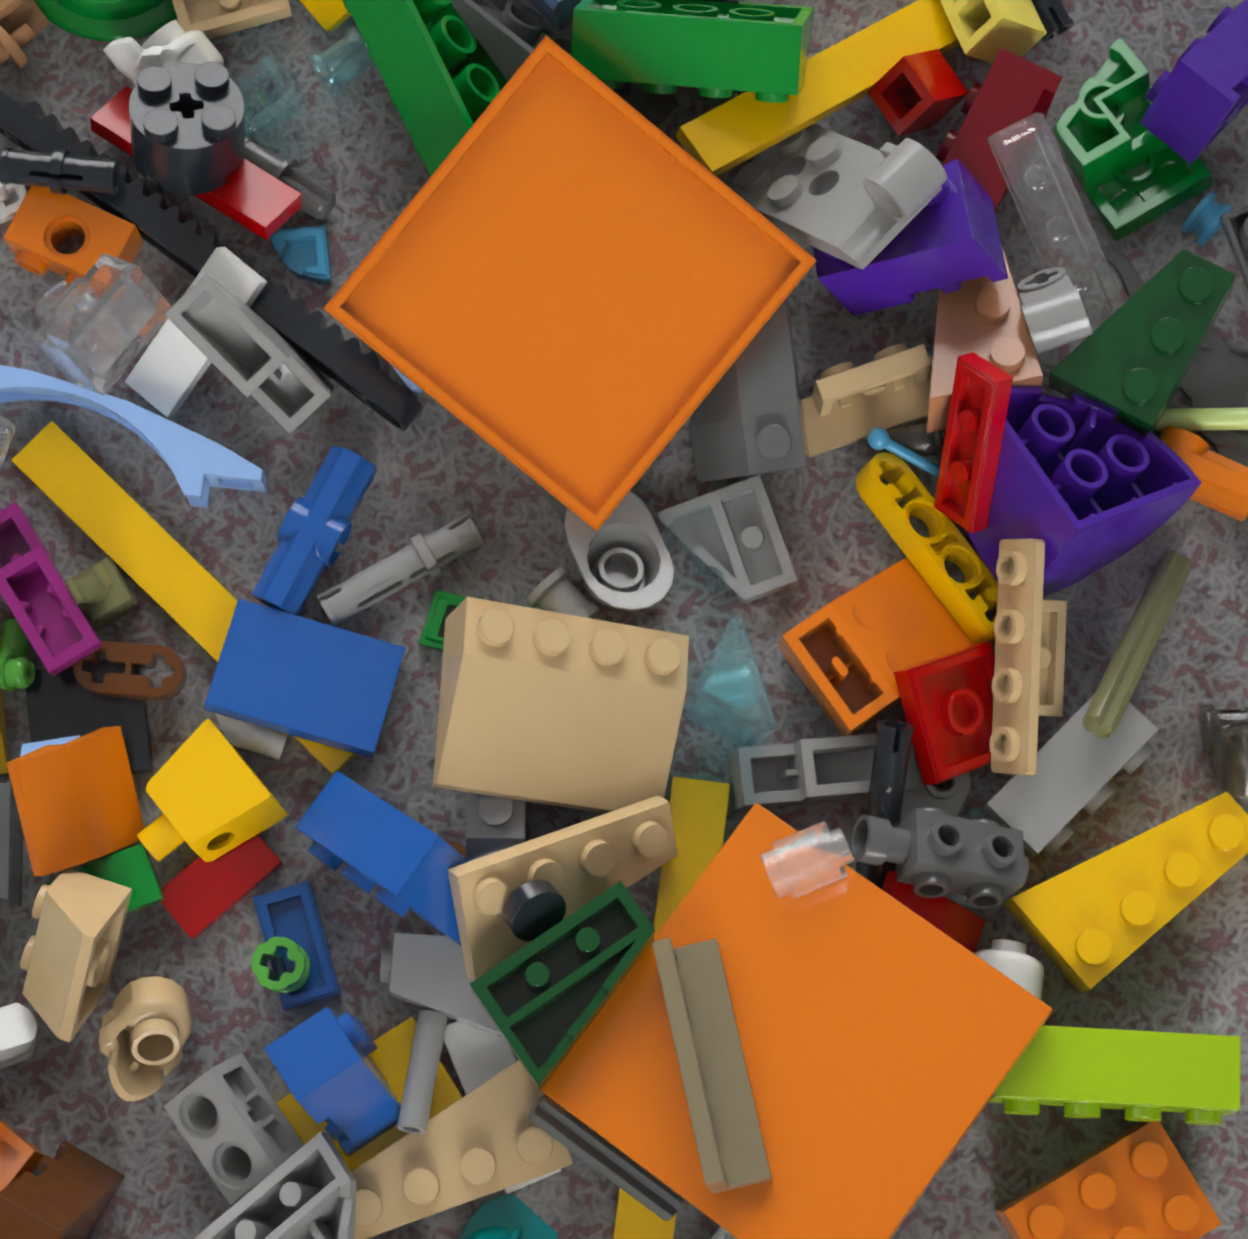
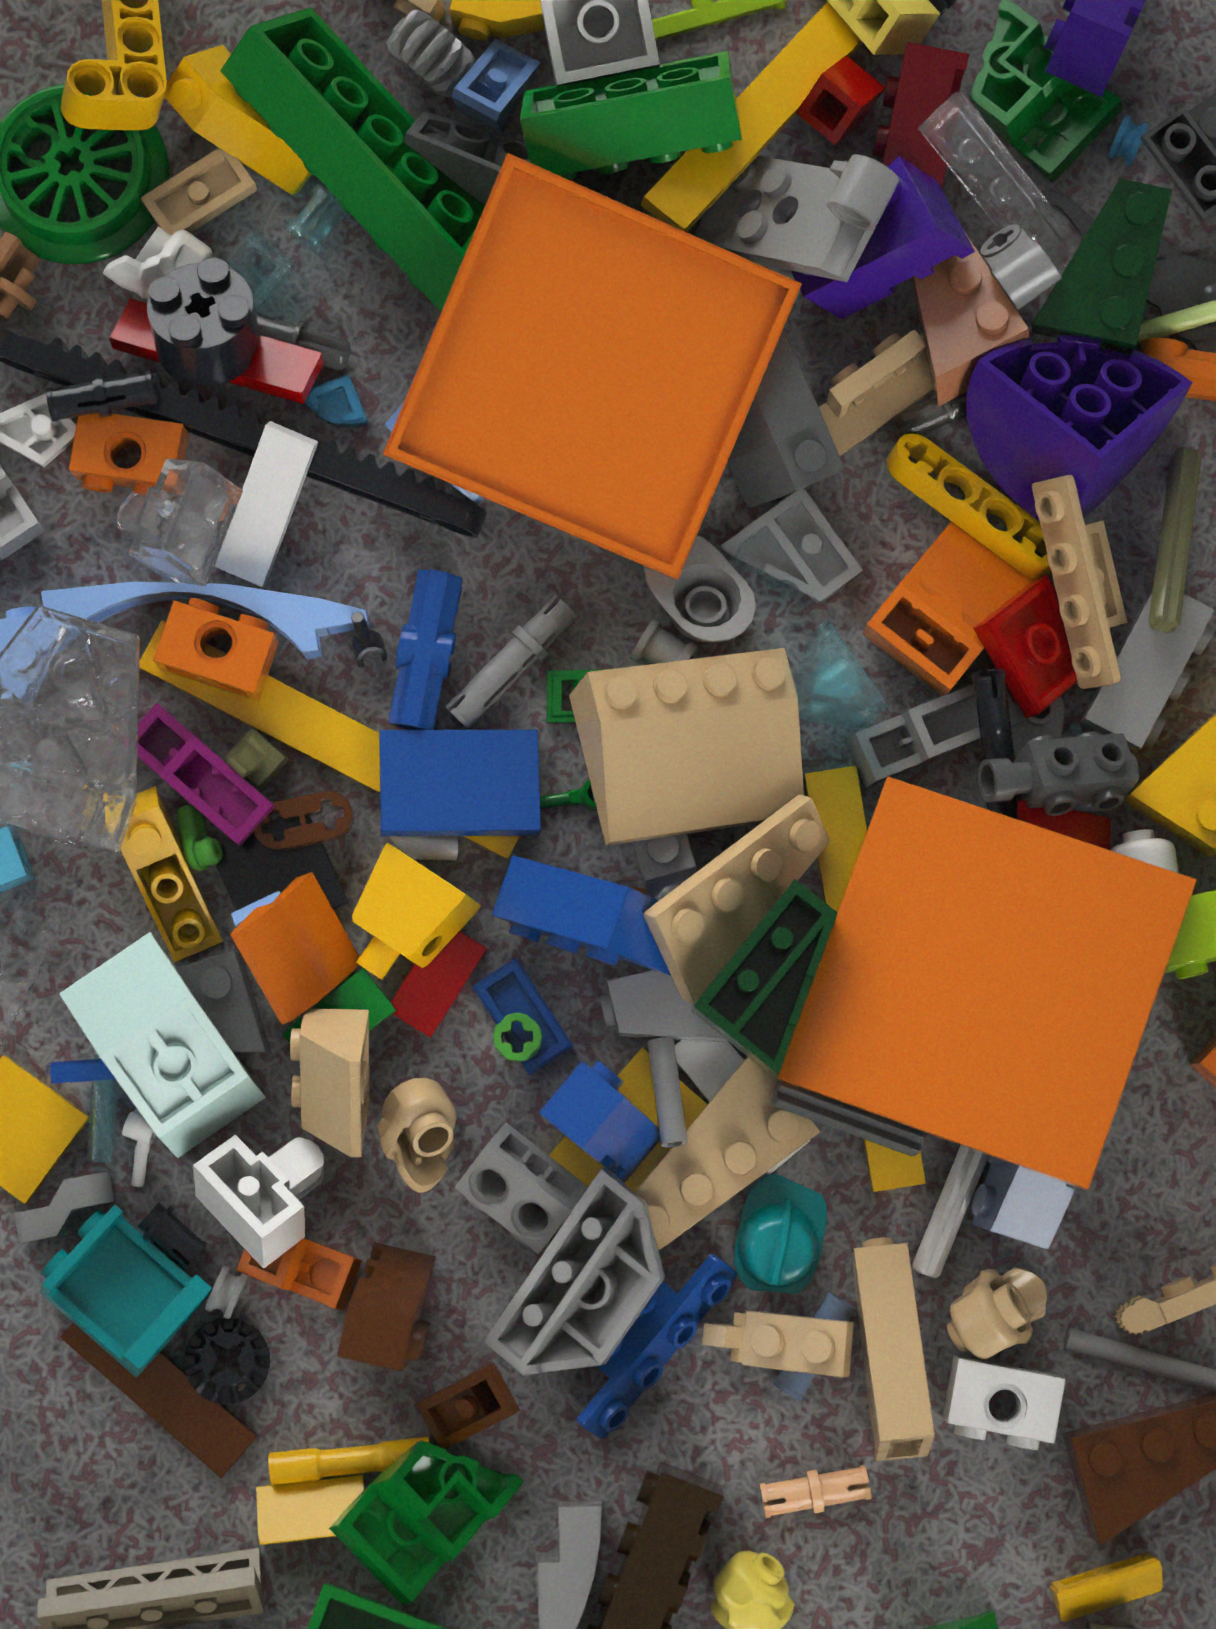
camera: 15 degrees left, 5 degrees up
(115, 493) = (239, 671): none -> orange brick
(250, 352) = (324, 510): light grey slope -> none
(255, 502) = (365, 640): none -> black hand
(421, 730) = (573, 797): none -> green hand
(533, 909) = (727, 926): black tile -> none
(712, 1065) = (921, 1012): dark tan fence -> none
(807, 860) = (949, 814): clear brick -> none
(879, 439) = (898, 424): dark azure hinge -> none
(972, 442) = (984, 405): red tile -> none

